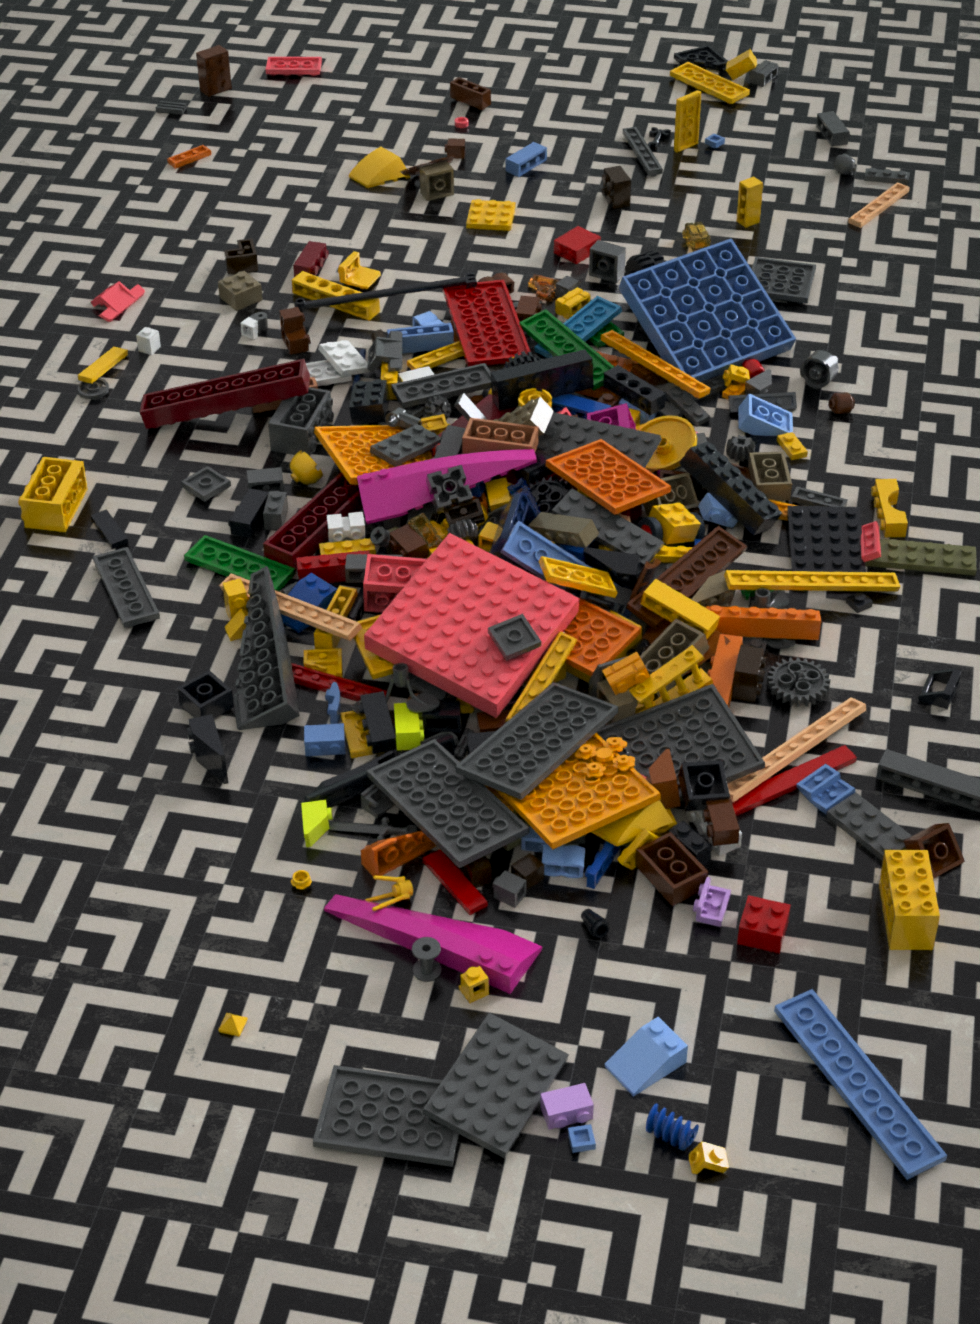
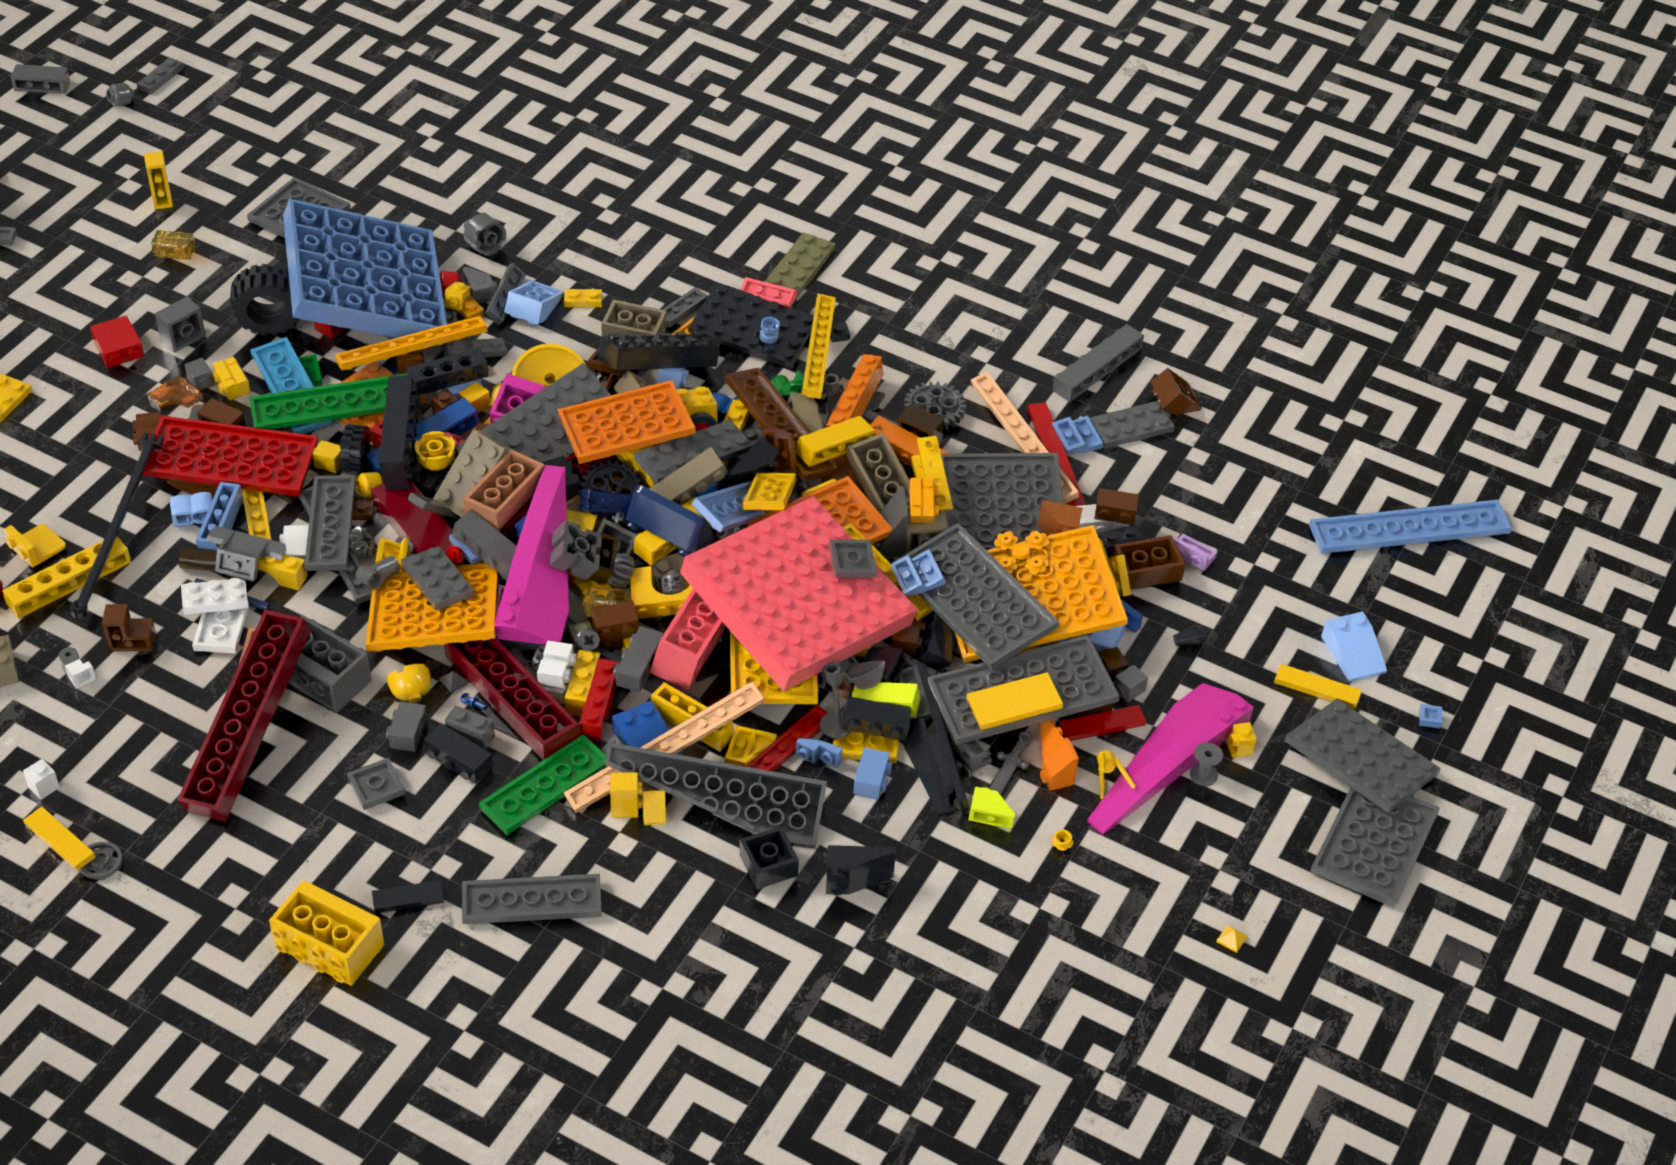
camera: 75 degrees left, 5 degrees up
(369, 402) = (319, 594): black brick -> none
(422, 794) = (1014, 701): none -> yellow tile
(542, 696) = (918, 573): none -> medium blue slope
(566, 1106) = (1396, 714): lavender brick -> none
(581, 1038) = (1317, 685): none -> yellow tile
(616, 187) = (34, 272): dark brown brick -> none
(670, 1129) = (1435, 653): blue piece -> none
(702, 783) = (1078, 493): black brick -> none
(708, 1157) = (1468, 643): yellow bracket -> none
(740, 447) = (571, 332): dark grey gear -> none
(763, 924) = (1229, 525): red brick -> none
(812, 549) = (769, 330): none -> medium blue wheel
(841, 403) = (543, 238): reddish brown head -> none
(878, 205) = (209, 100): light nougat tile -> none
(891, 520) = (699, 261): yellow arch -> none
(909, 900) = (1240, 424): yellow brick -> none
(940, 698) = (984, 314): black tile -> none

